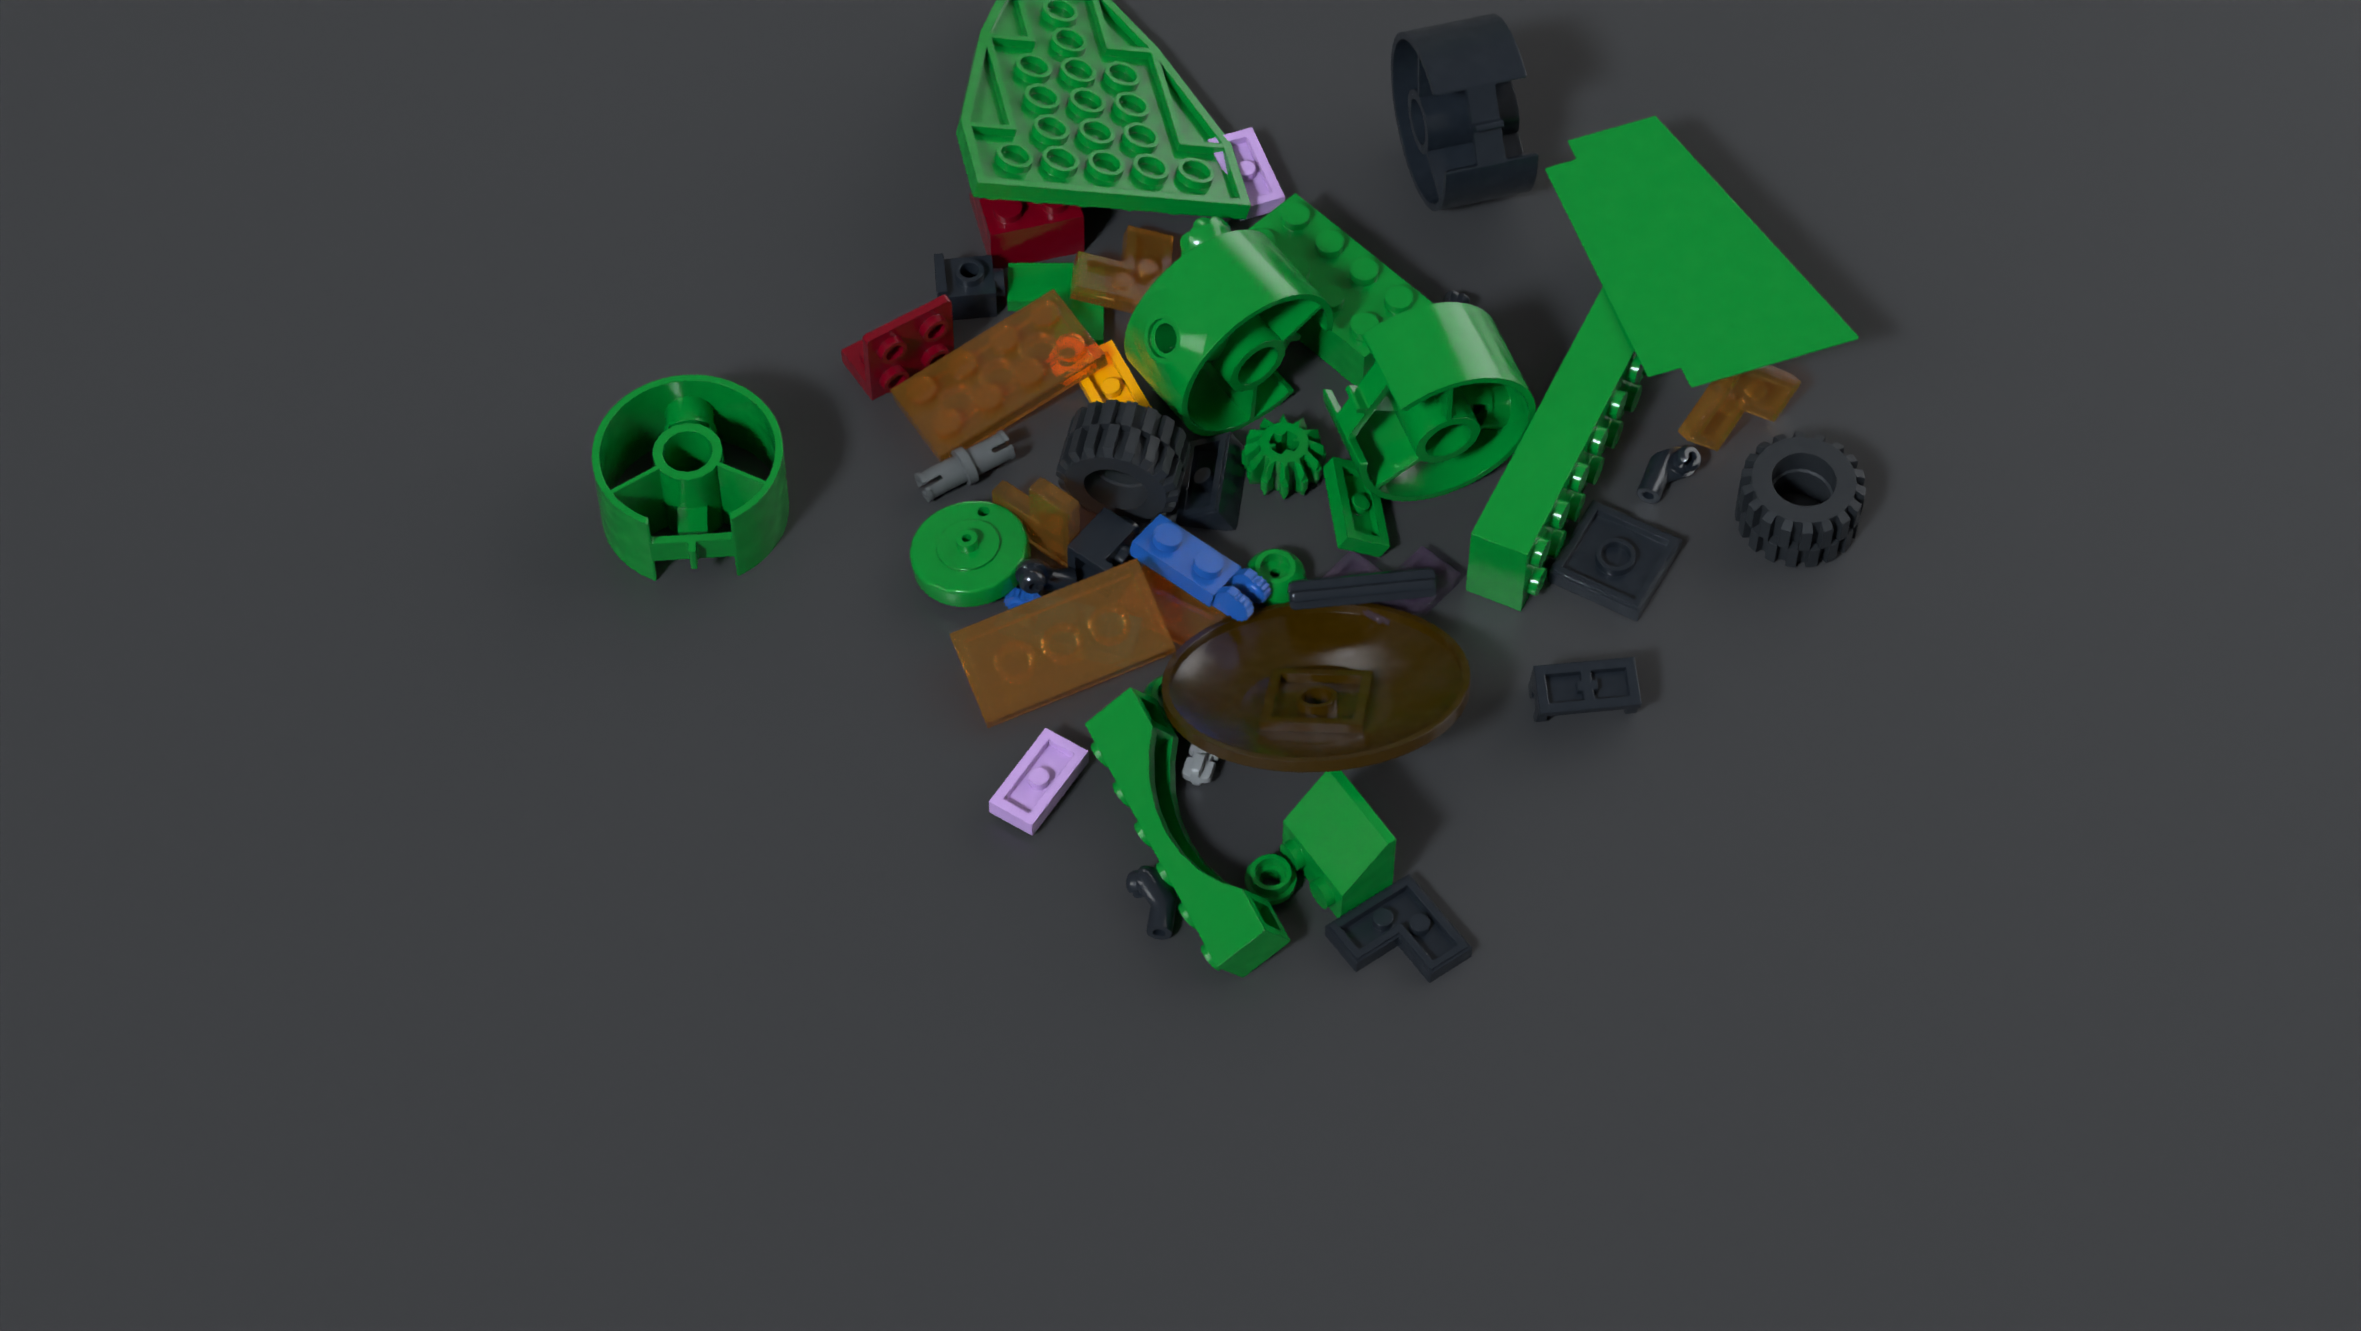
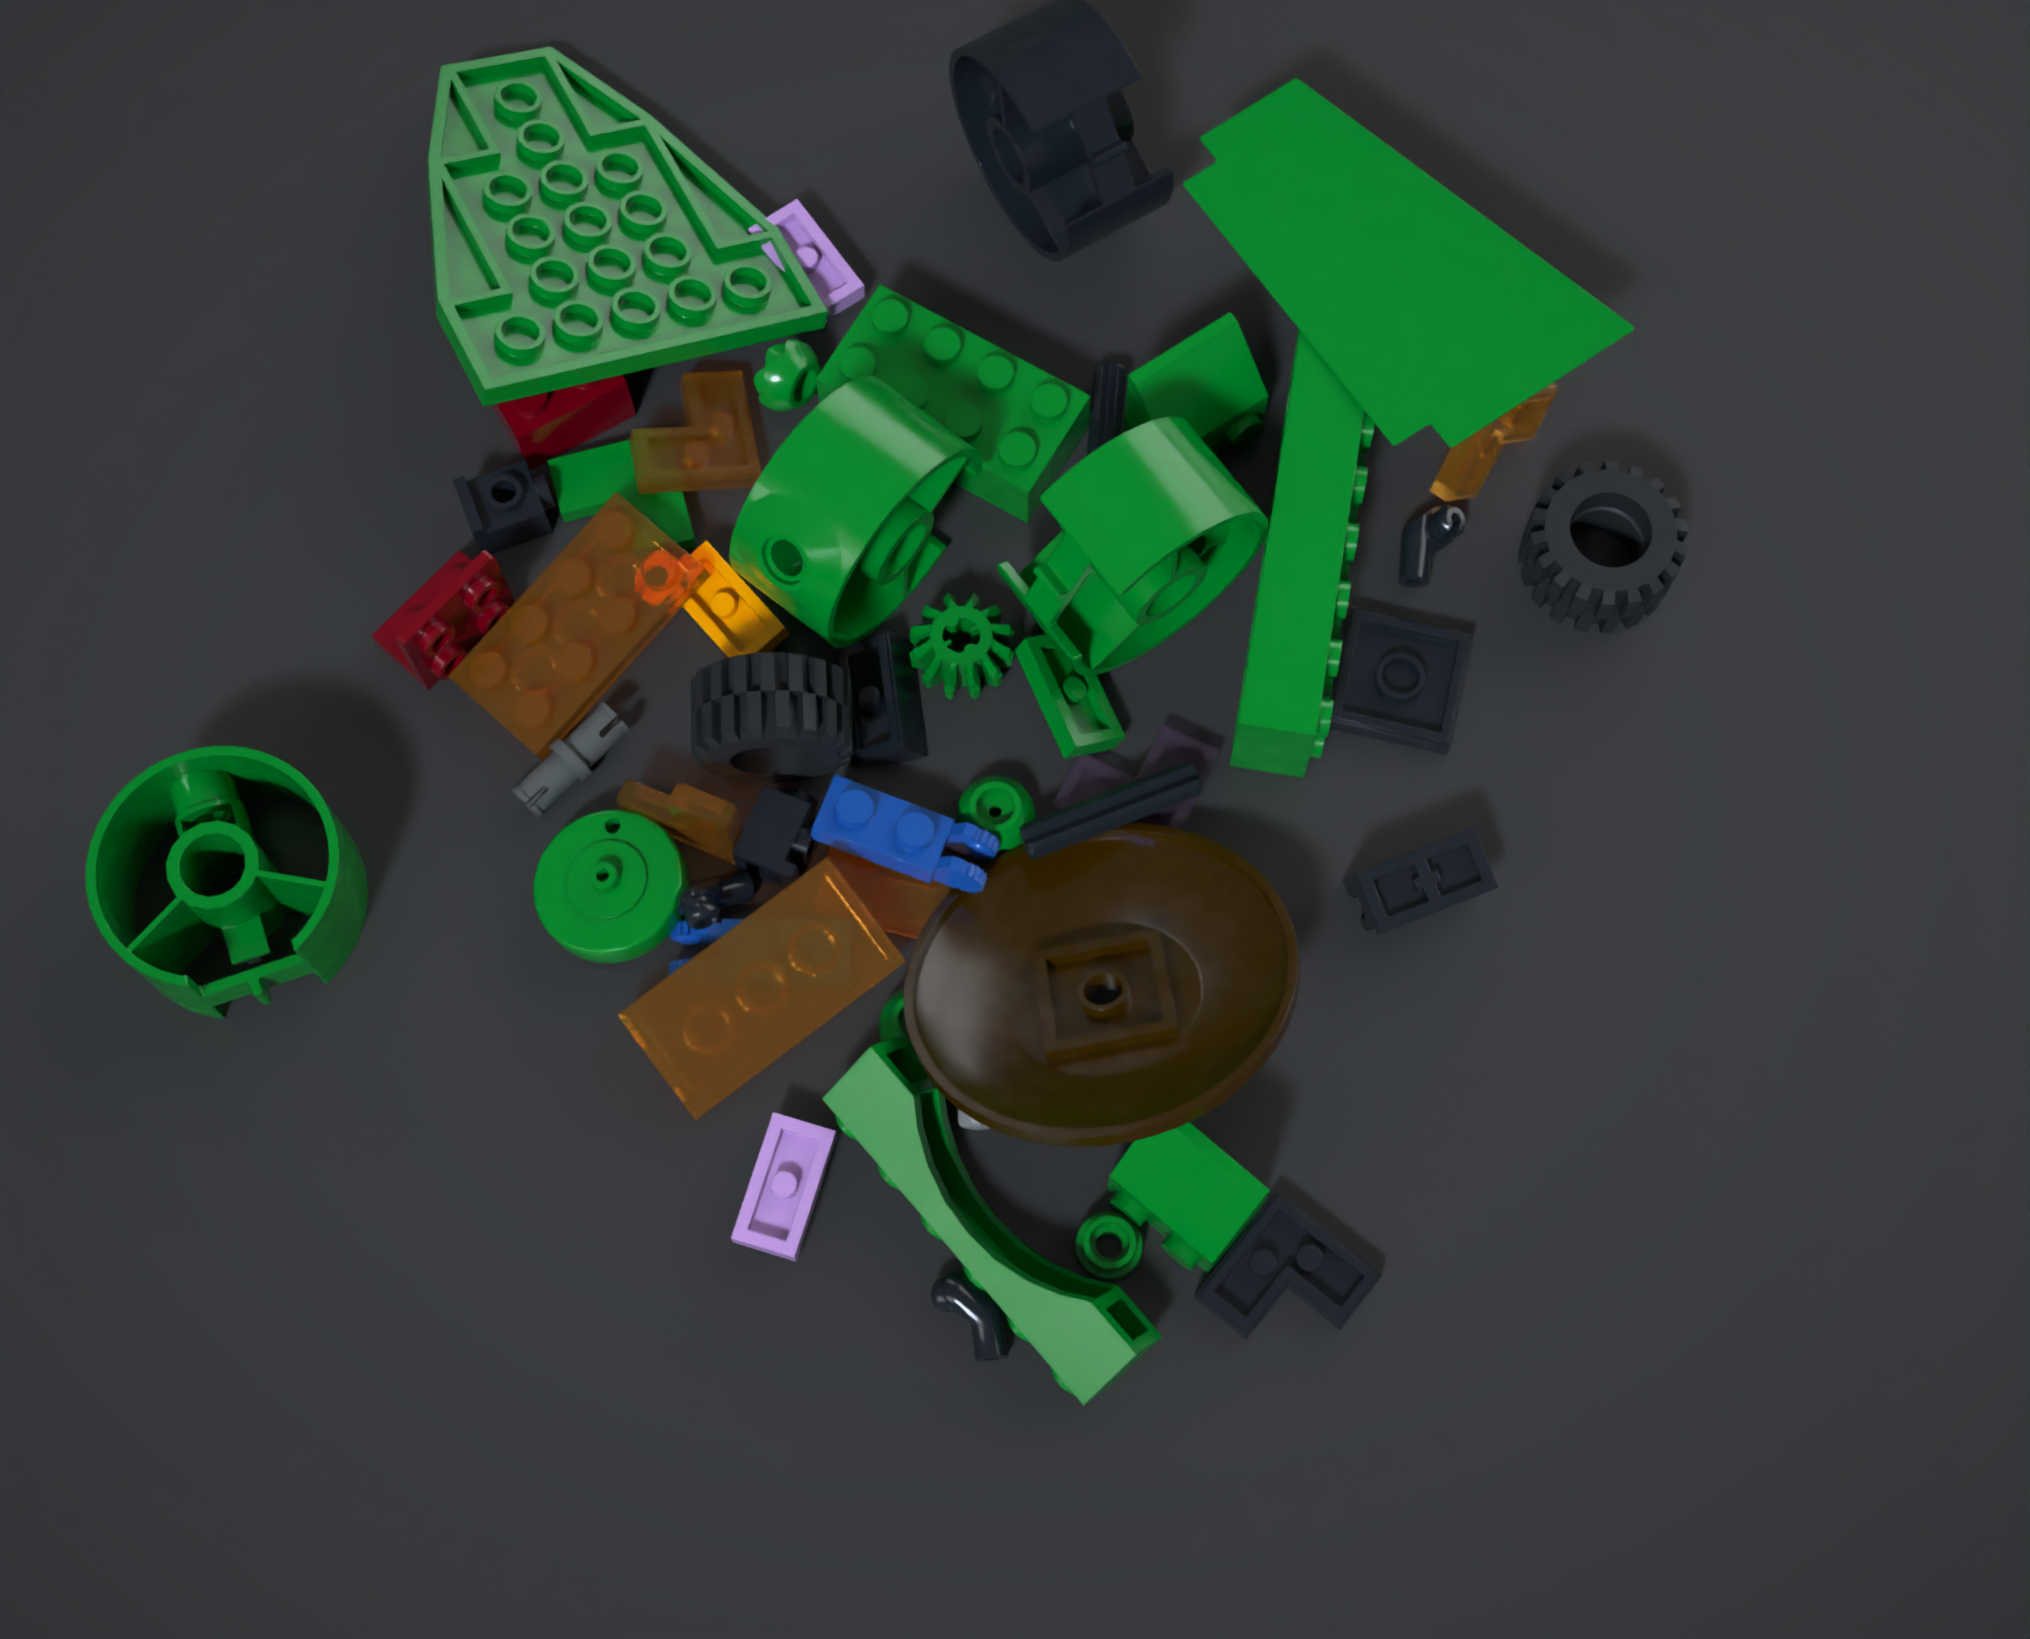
camera: 15 degrees left, 15 degrees up
(1528, 315) = (1206, 382): none -> green slope

